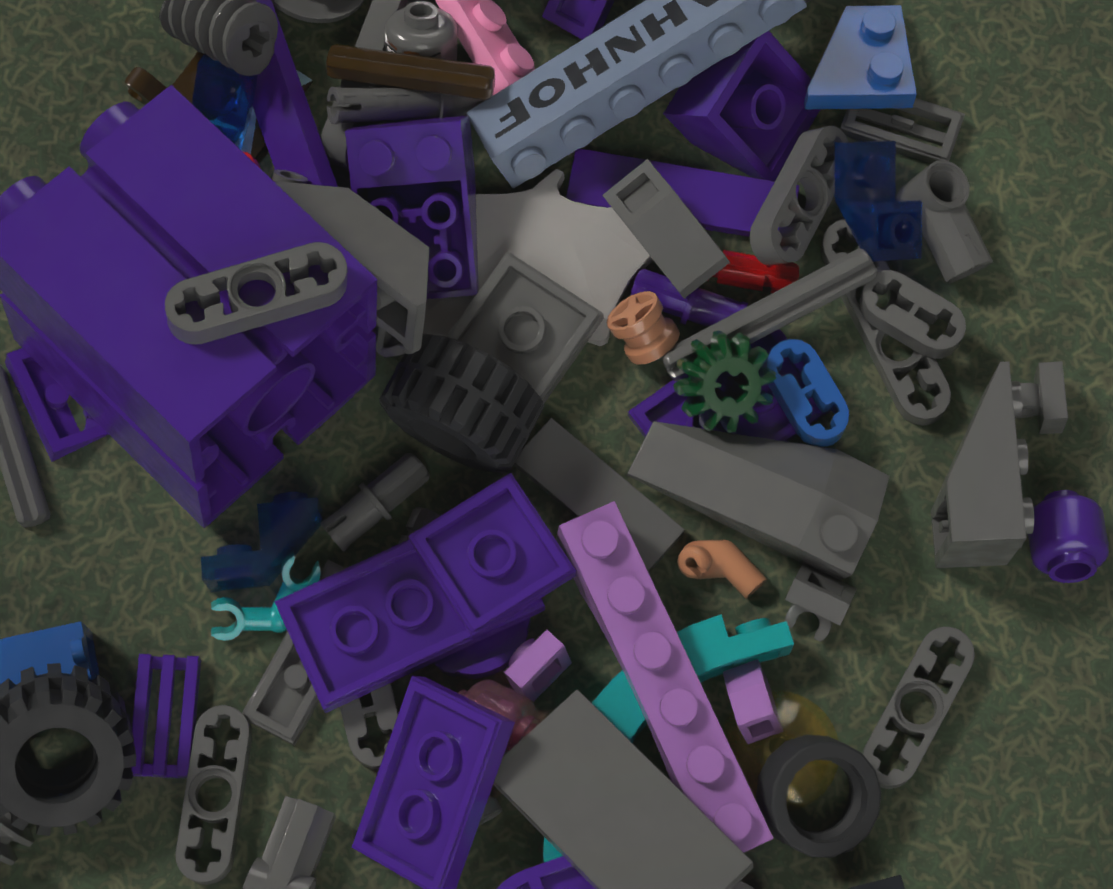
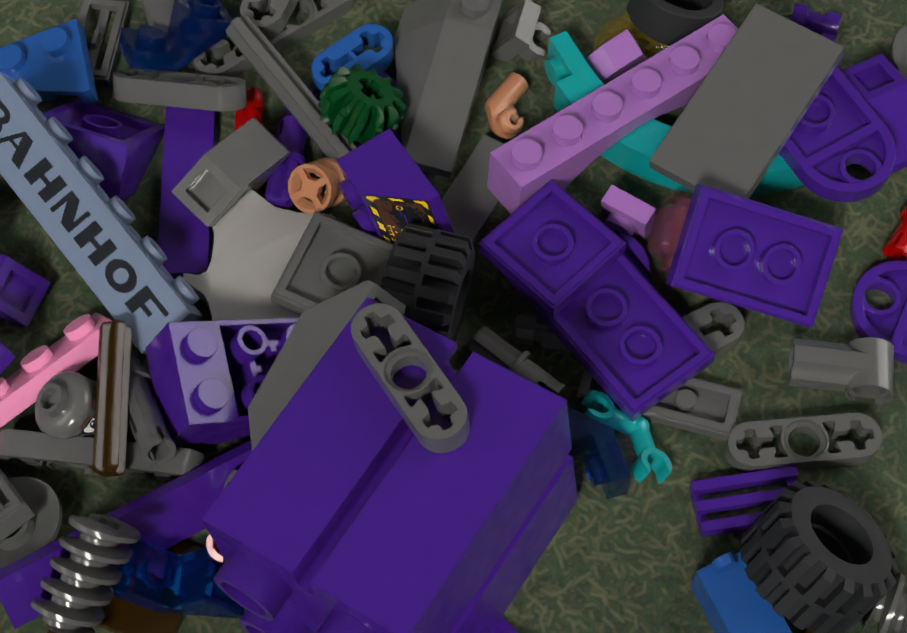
camera: 105 degrees left, 10 degrees down
(590, 398) = (389, 189): none -> dark purple slope

